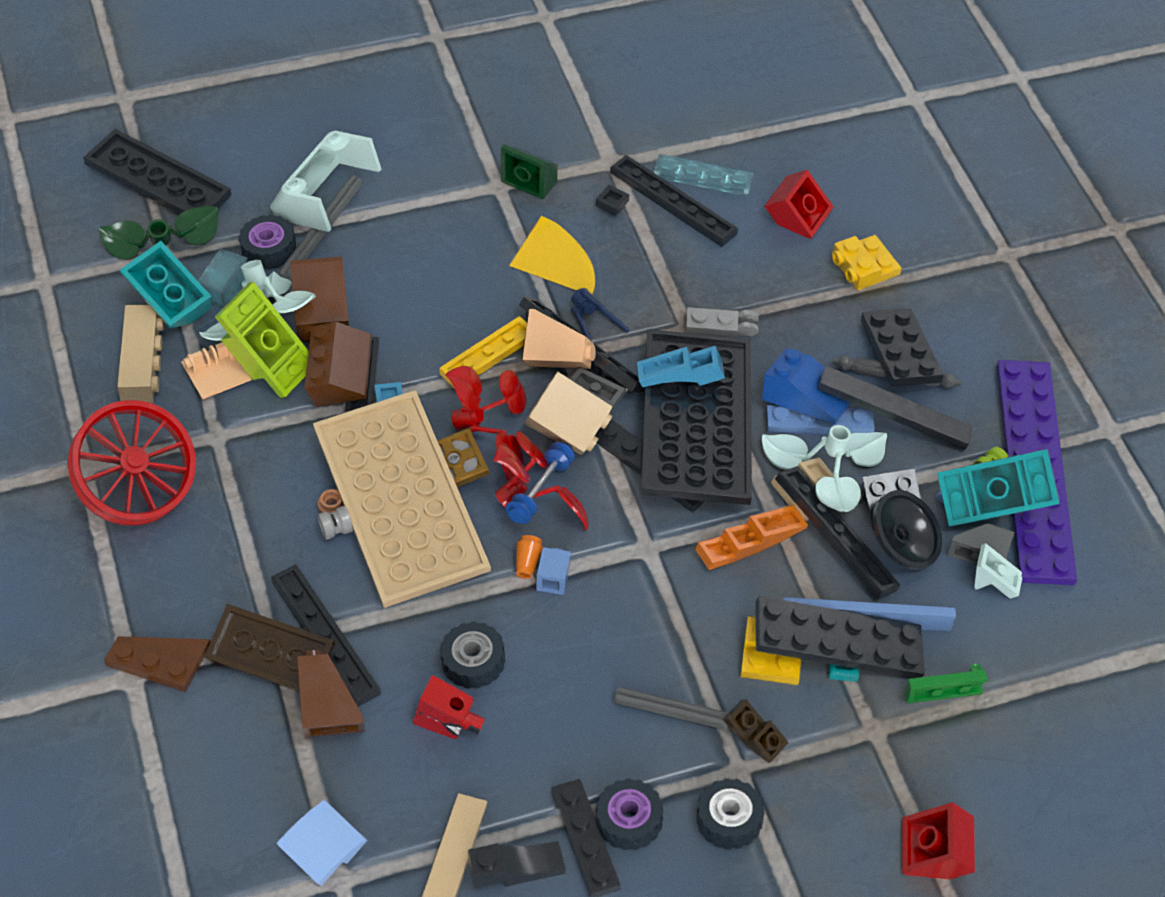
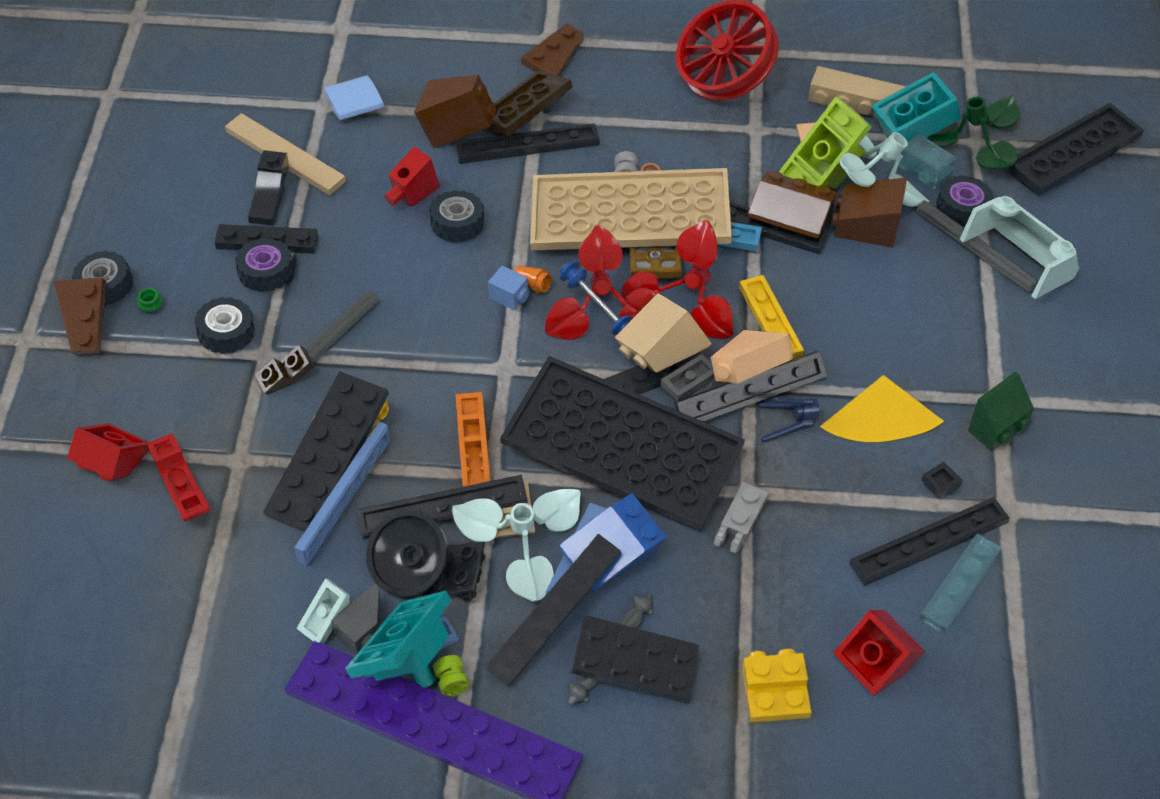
camera: 115 degrees right, 0 degrees up
(681, 365) = (671, 435): dark azure slope -> none
(936, 759) = (178, 478): none -> red slope
(946, 685) = (239, 521): green hinge -> none

